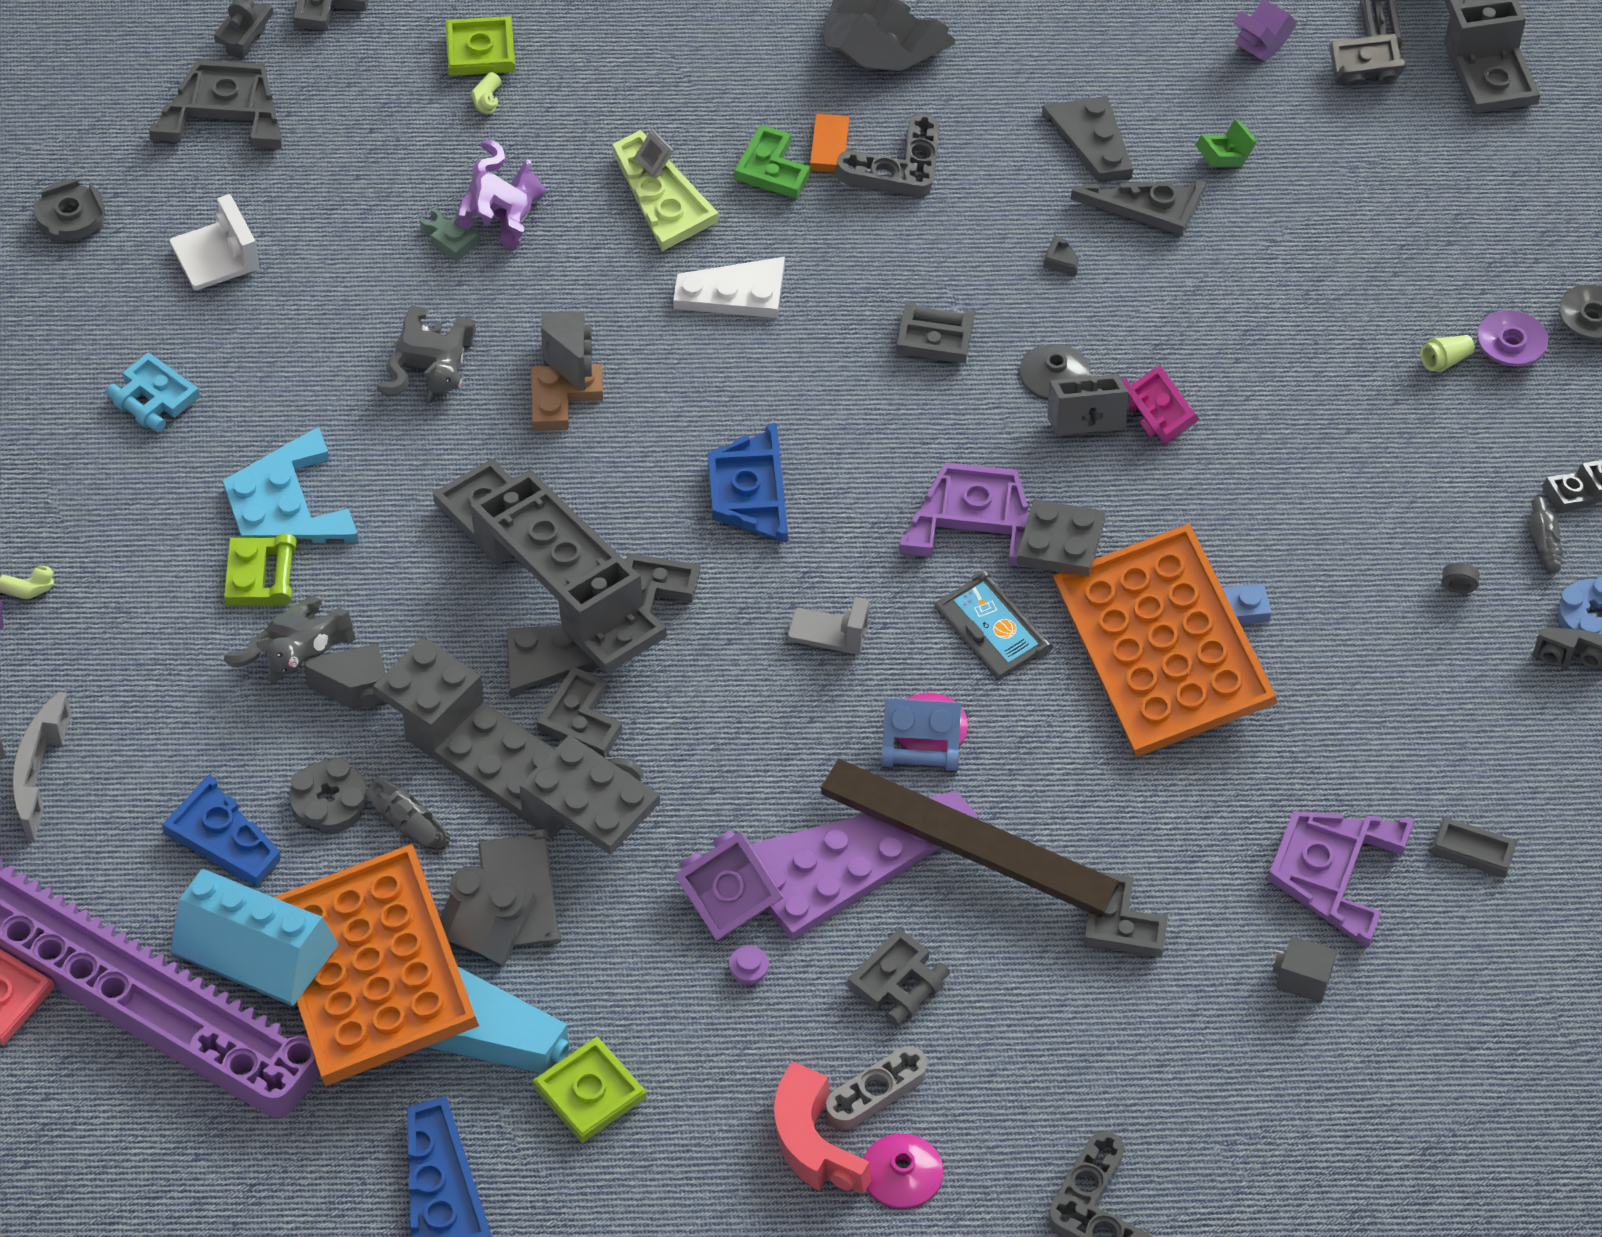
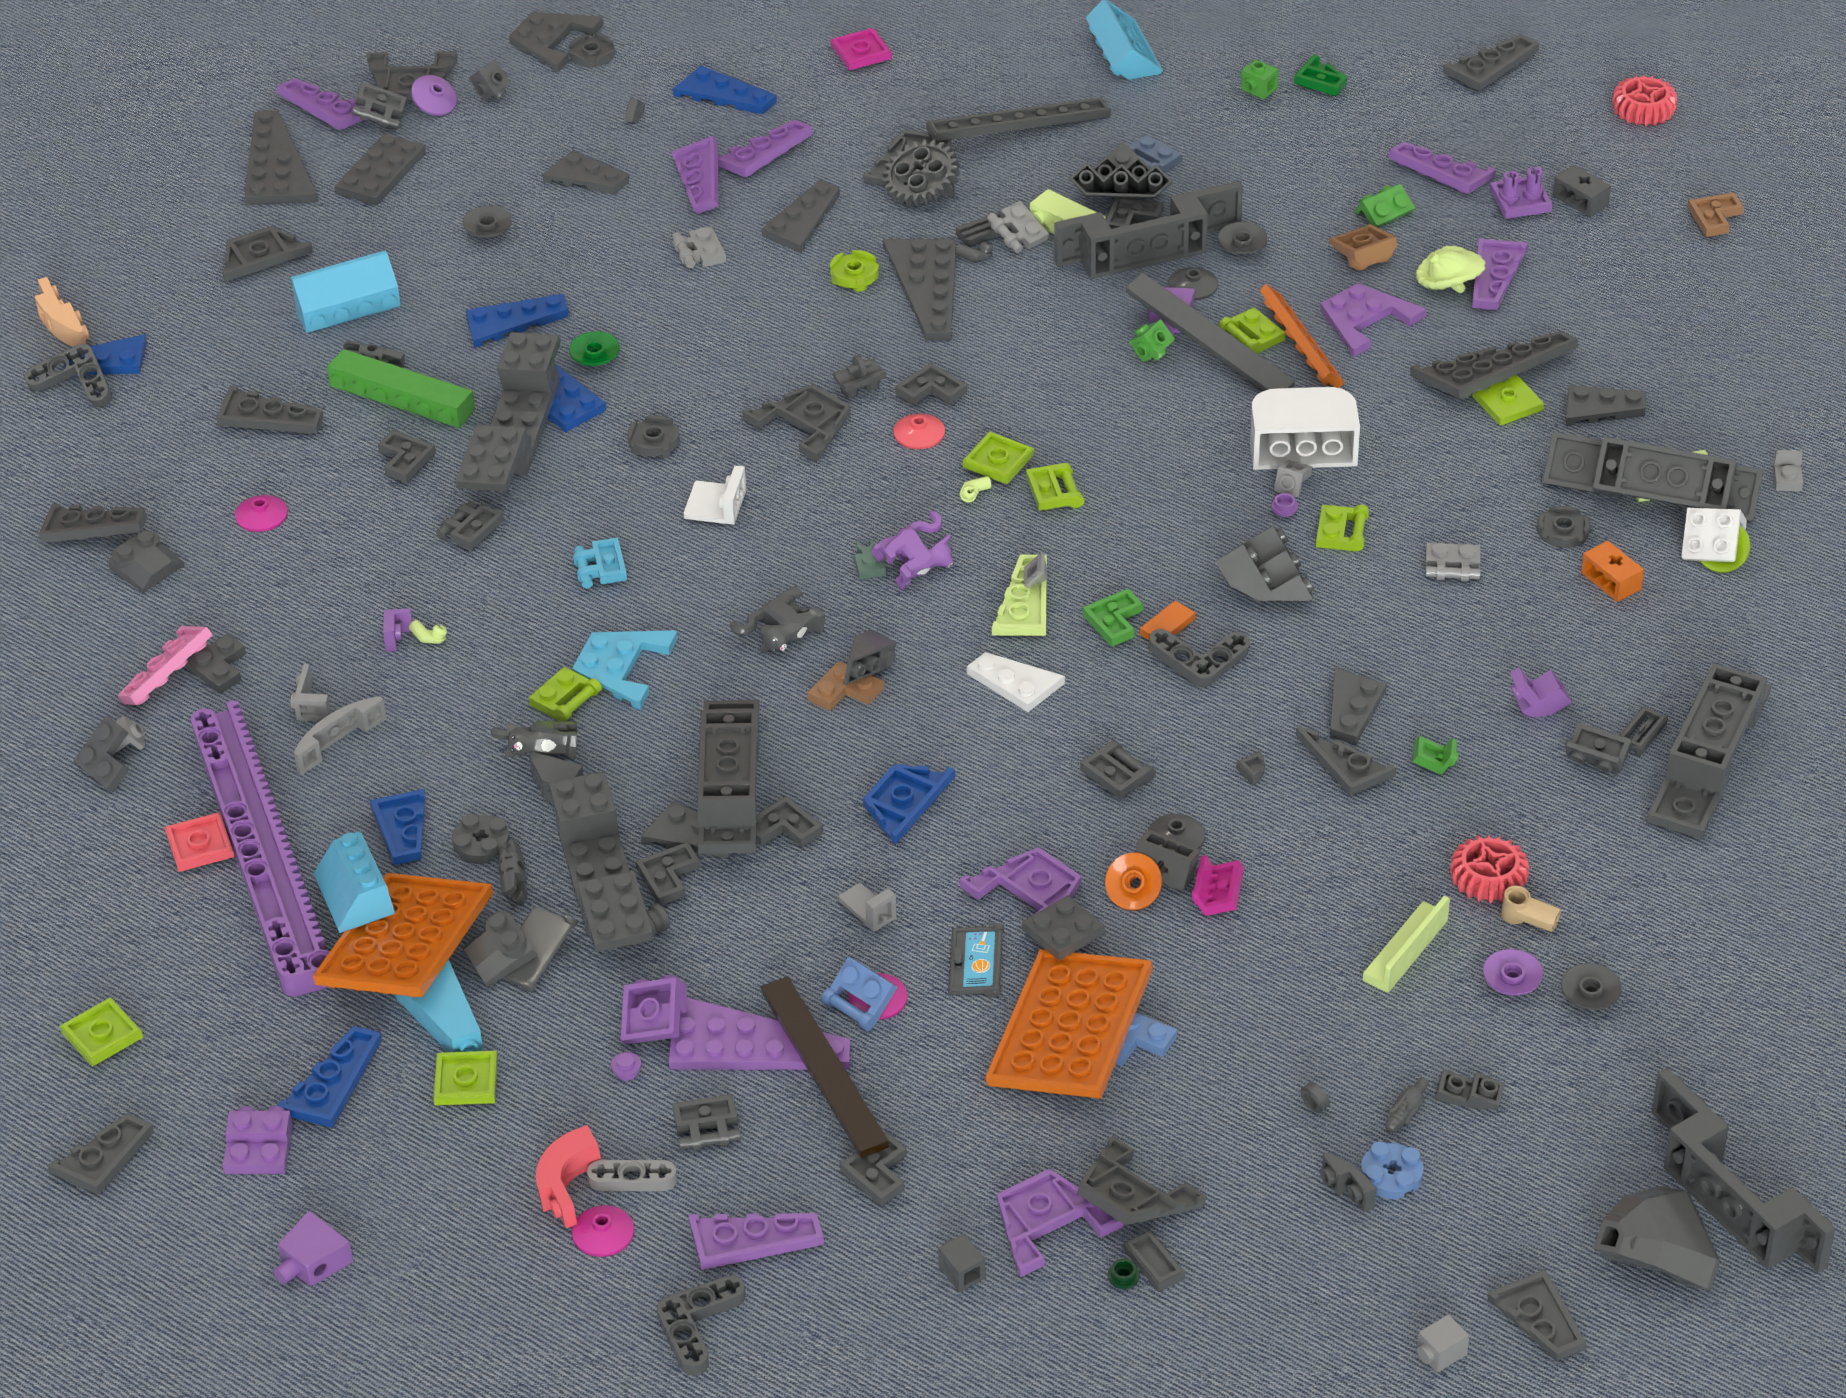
camera: 40 degrees right, 10 degrees down
(359, 58) = (919, 431): none -> coral dish
(566, 56) = (1047, 490): none -> lime plate
(1067, 1080) = (735, 1240): none -> medium lavender wing
(1092, 444) = (1120, 877): none -> orange dish
(1388, 365) = (1407, 945): none -> yellowish green panel
(1388, 792) = (1129, 1196): none -> dark grey wing
(1389, 241) = (1488, 868): none -> coral gear
(1445, 352) = (1456, 957): yellowish green cone -> none
(1456, 264) = (1521, 908): none -> tan piece
(1467, 872) = (1123, 1267): none -> dark green plate

